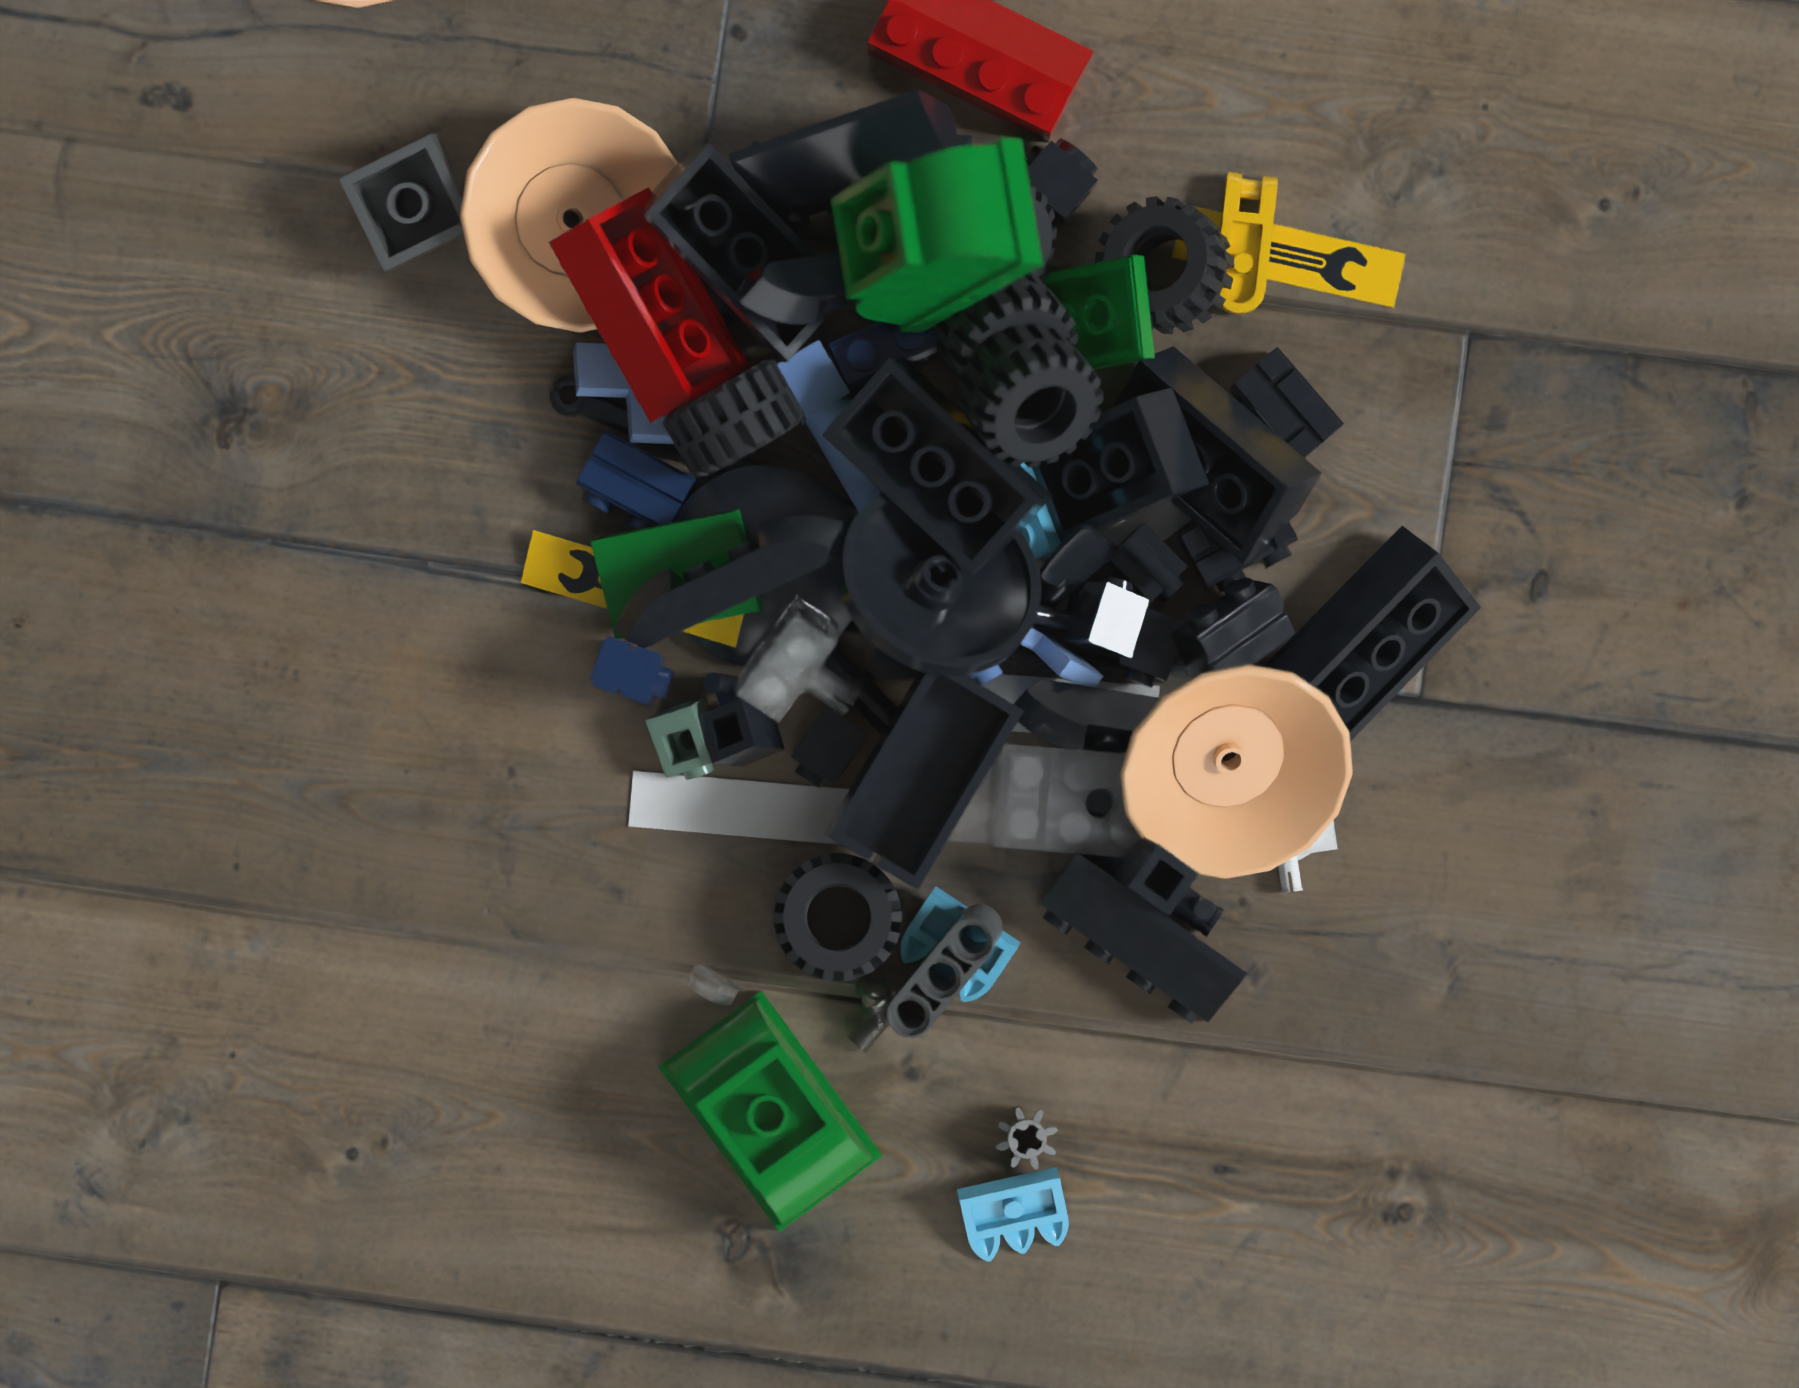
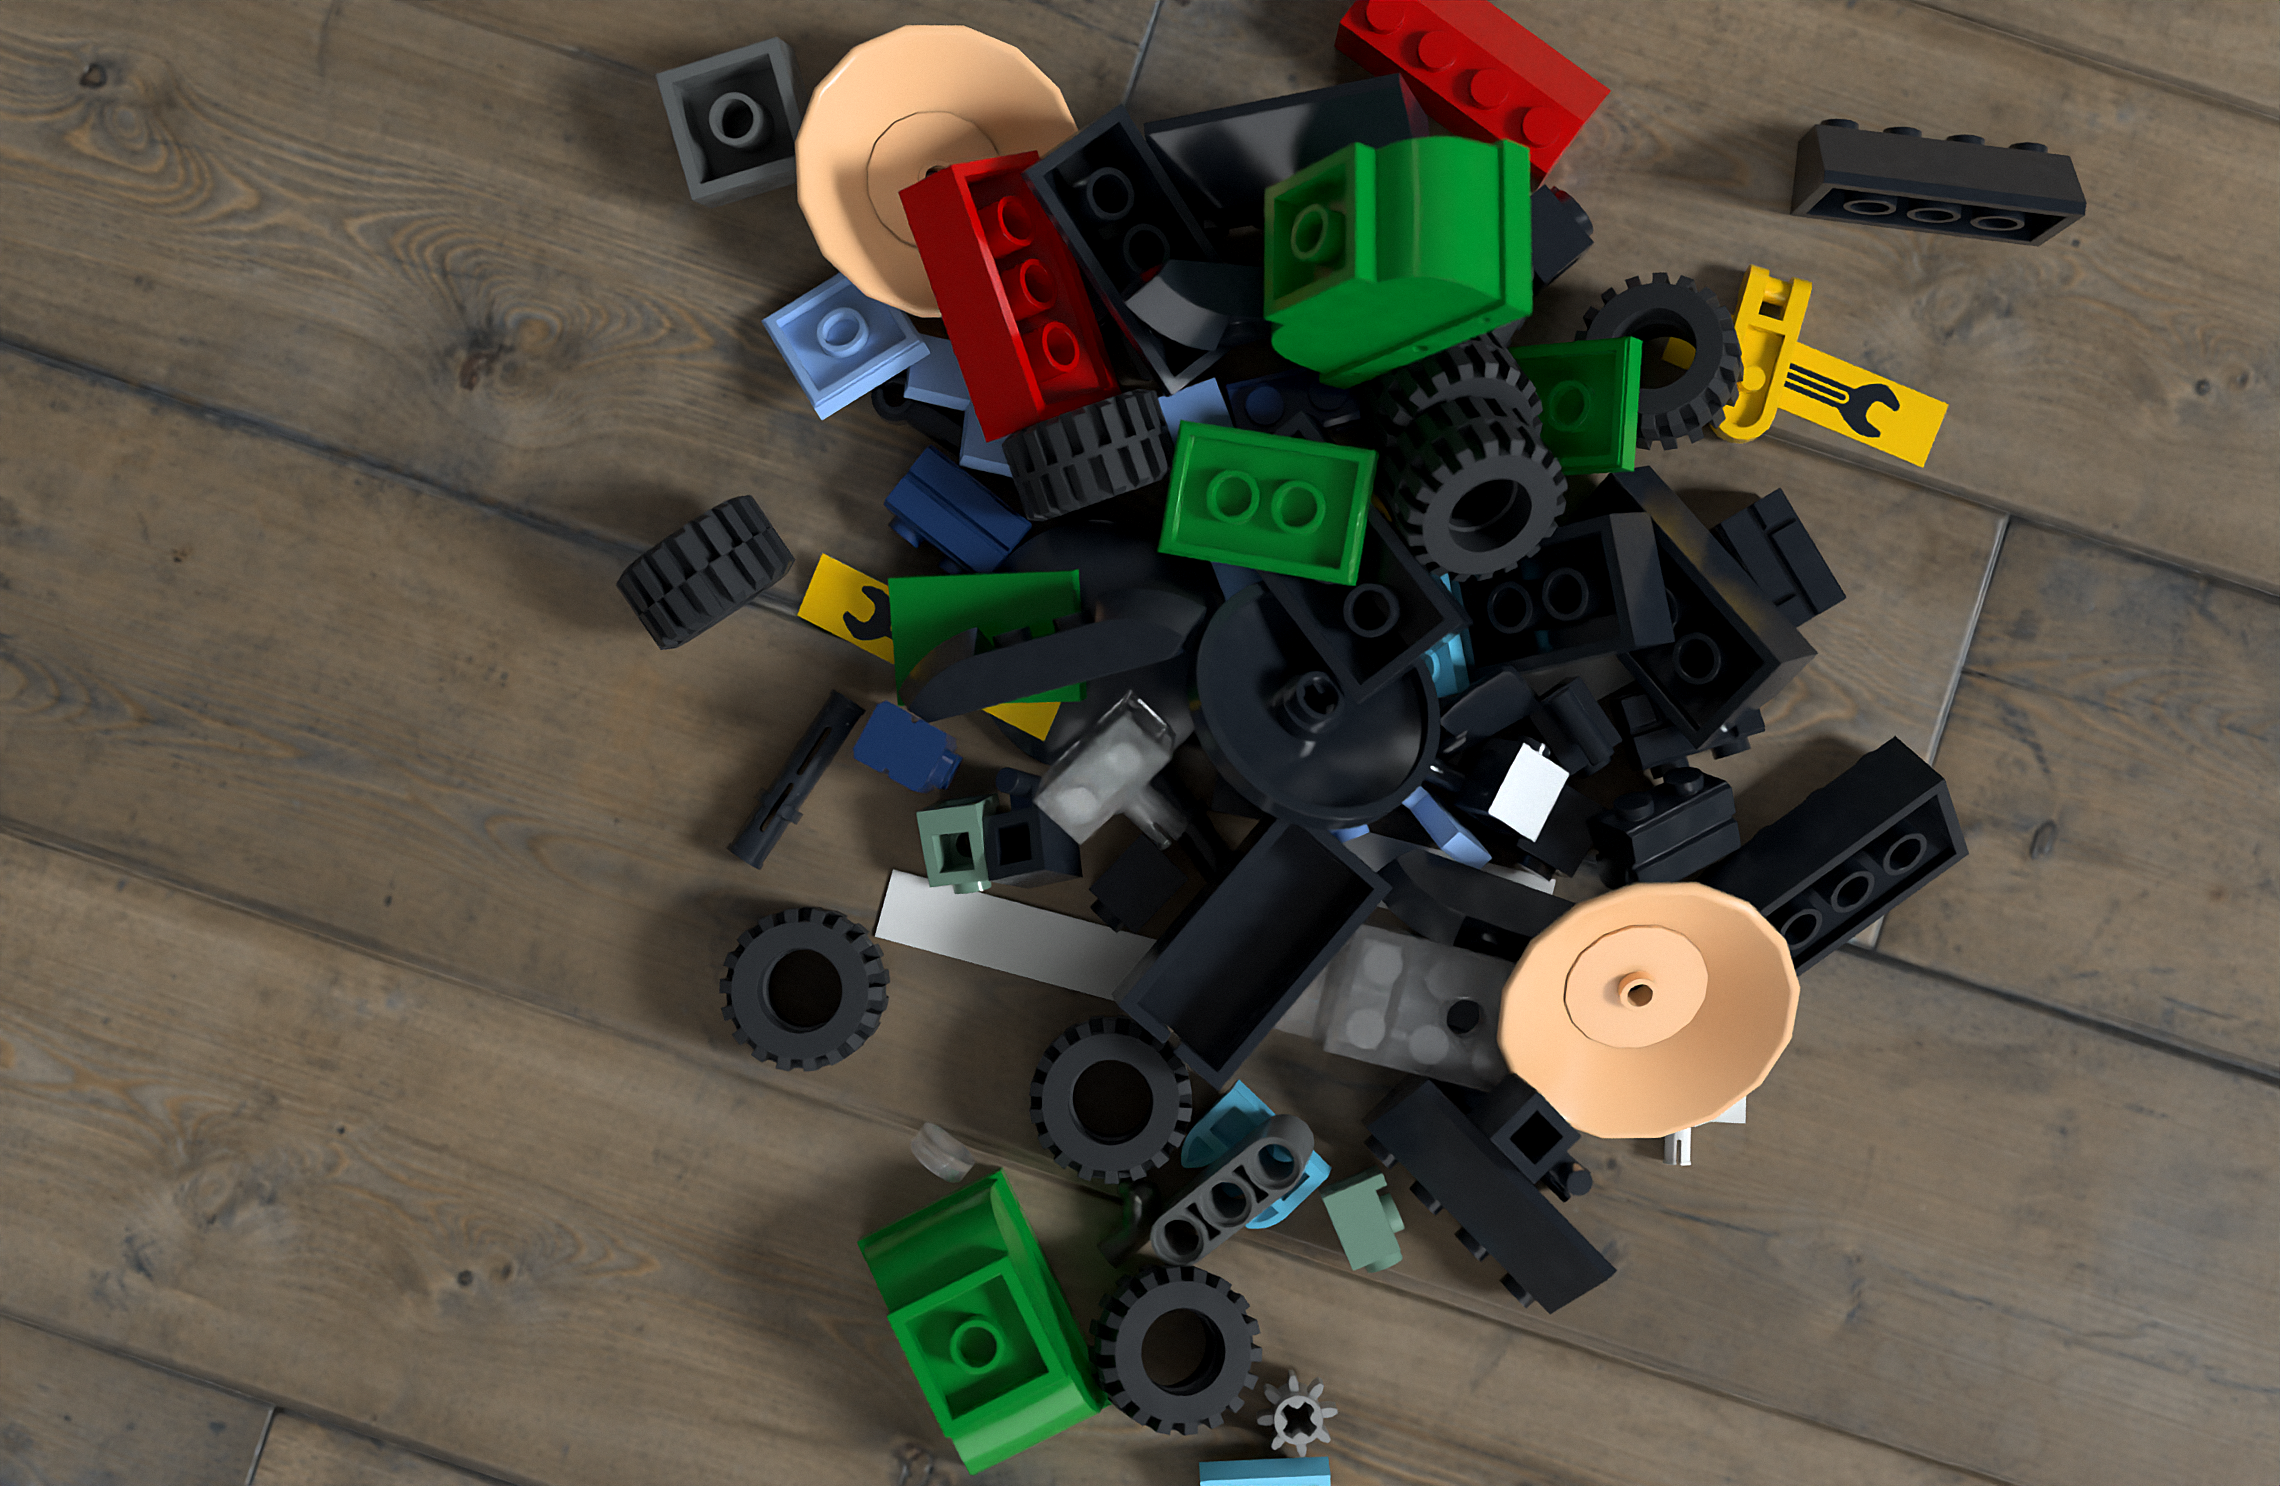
camera: 20 degrees right, 0 degrees up
(448, 562) = (705, 571): none -> black tyre
(520, 361) = (843, 343): none -> light blue tile
(521, 769) = (752, 842): none -> black pin
(537, 867) = (751, 998): none -> black tyre
(876, 433) = (1268, 502): none -> green tile
(962, 1090) = (1225, 1360): none -> black tyre
(1053, 979) = (1364, 1220): none -> sand green brick
(1357, 83) = (1935, 184): none -> black slope

